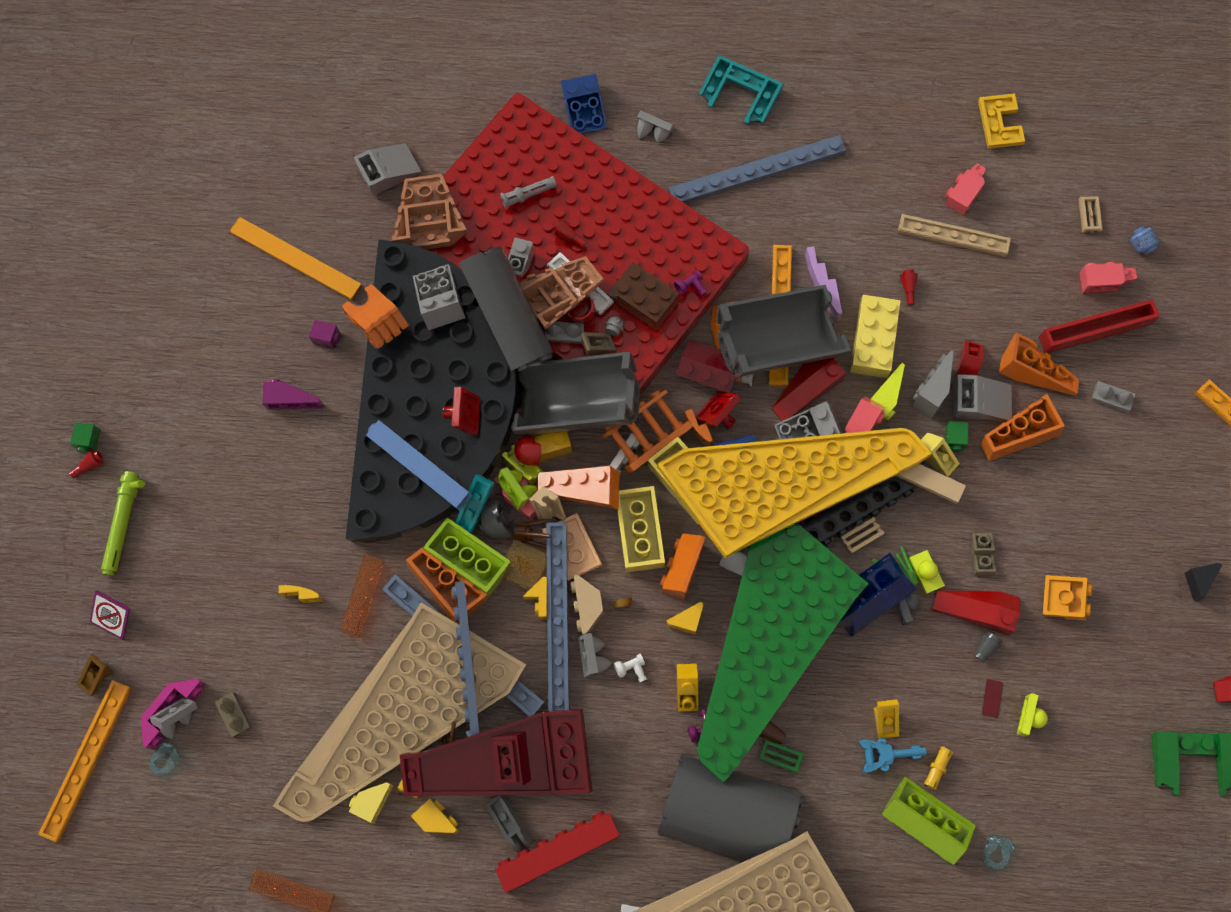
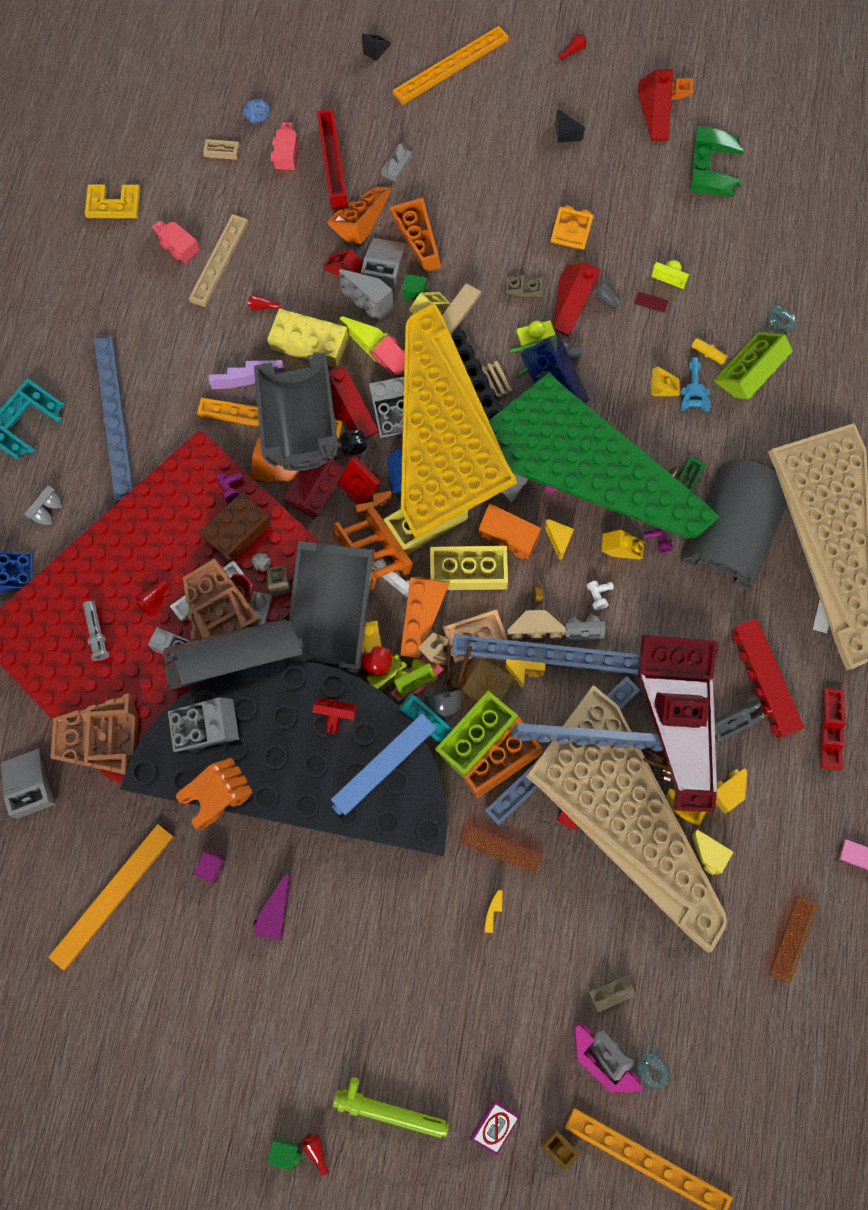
camera: 85 degrees left, 0 degrees up
(762, 397) = (353, 443): none -> black wheel

